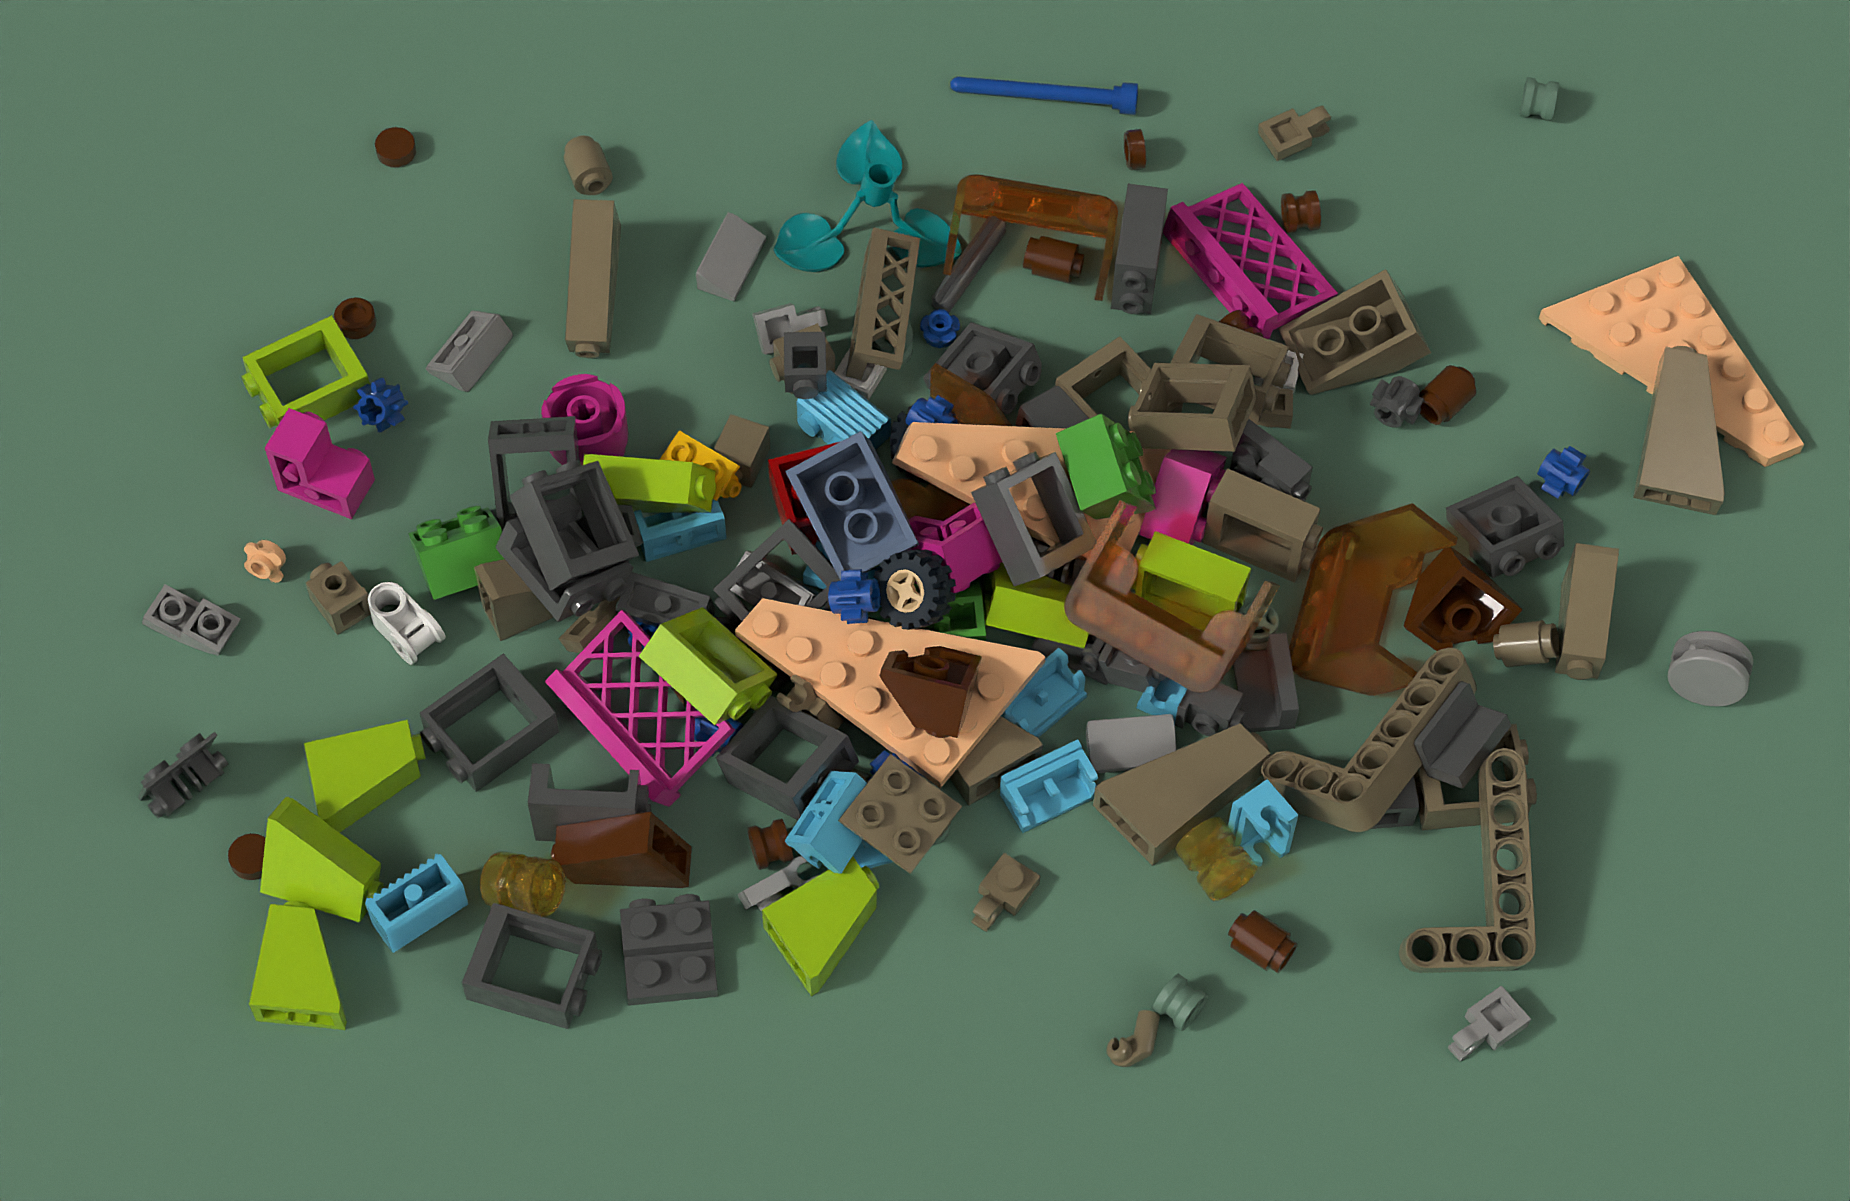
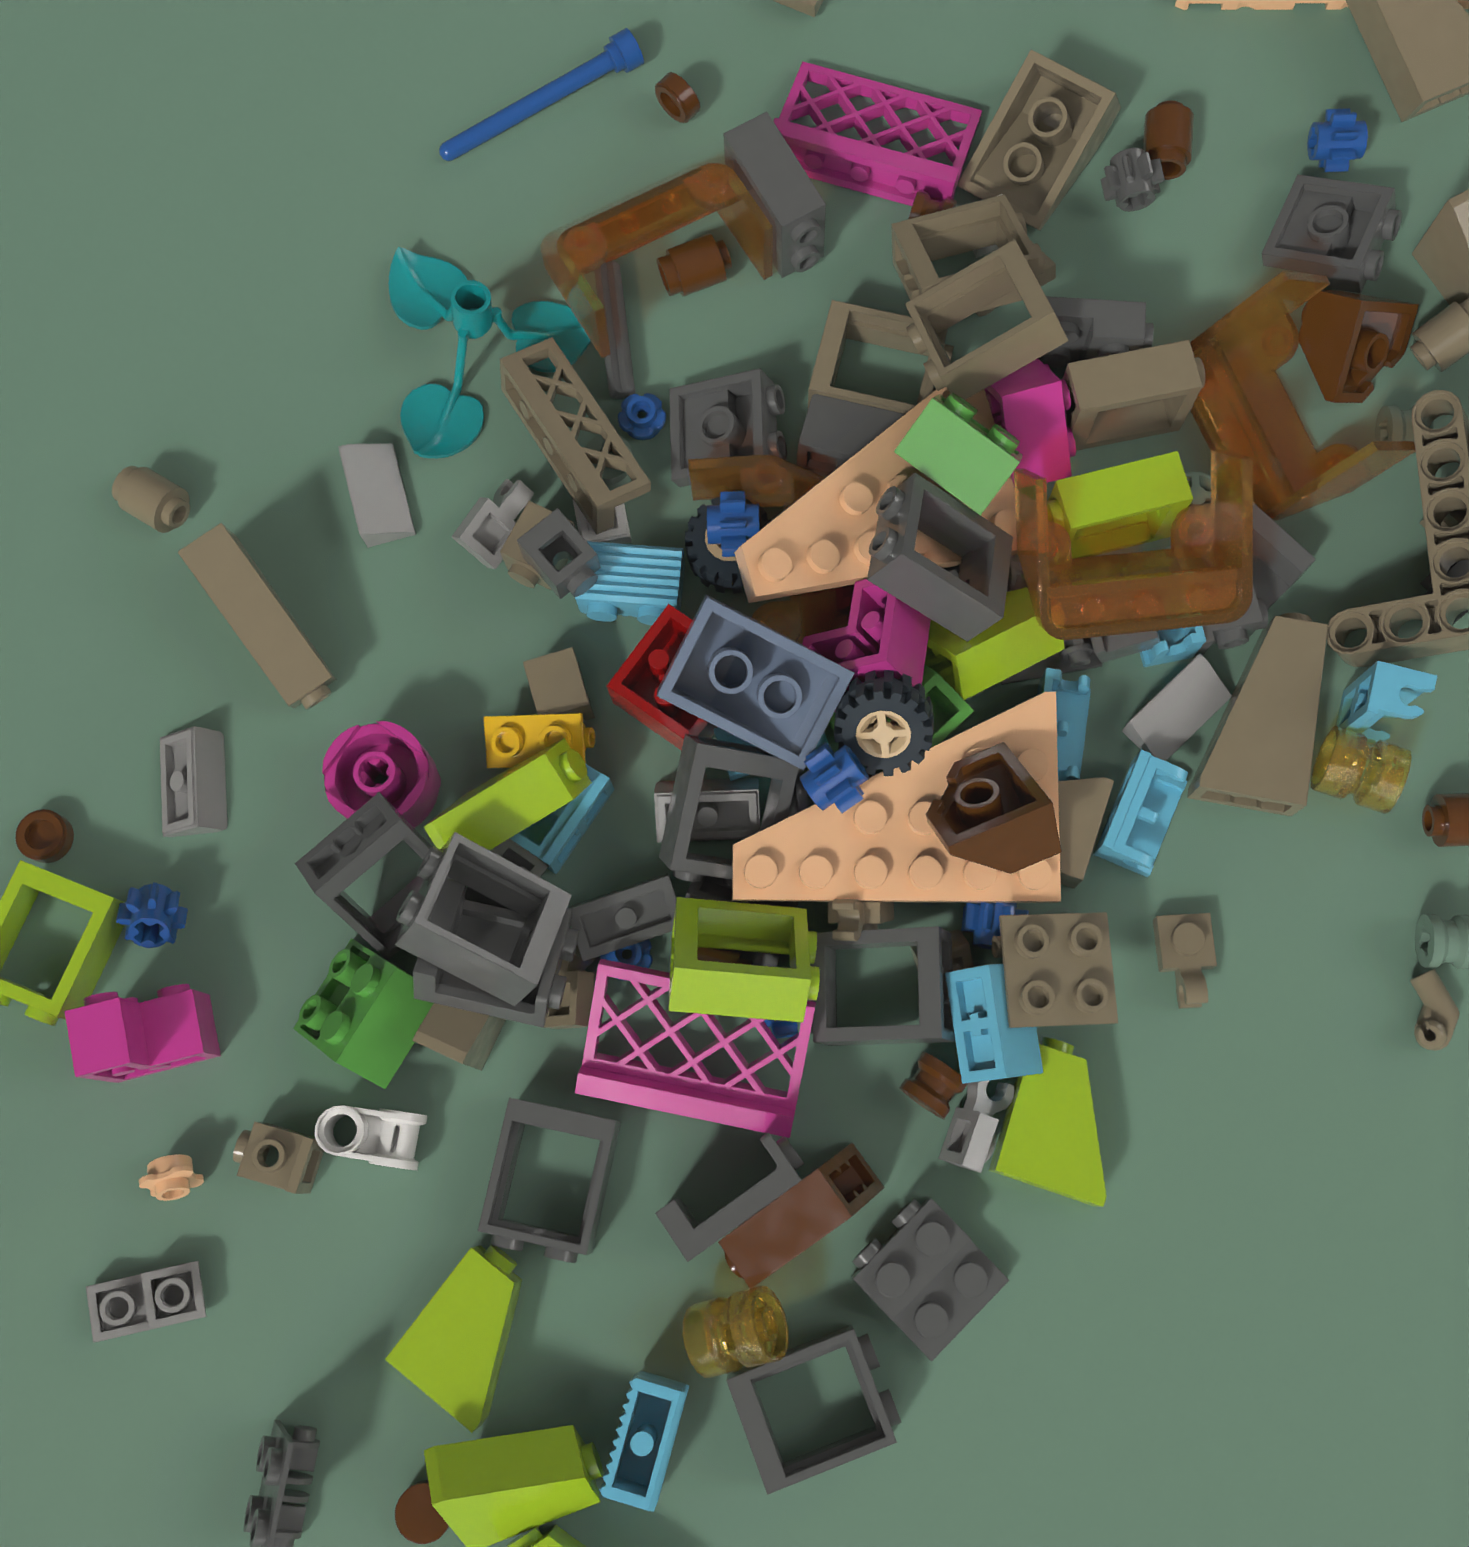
camera: 30 degrees left, 15 degrees up
(1300, 211) = (884, 51): reddish brown wheel -> none

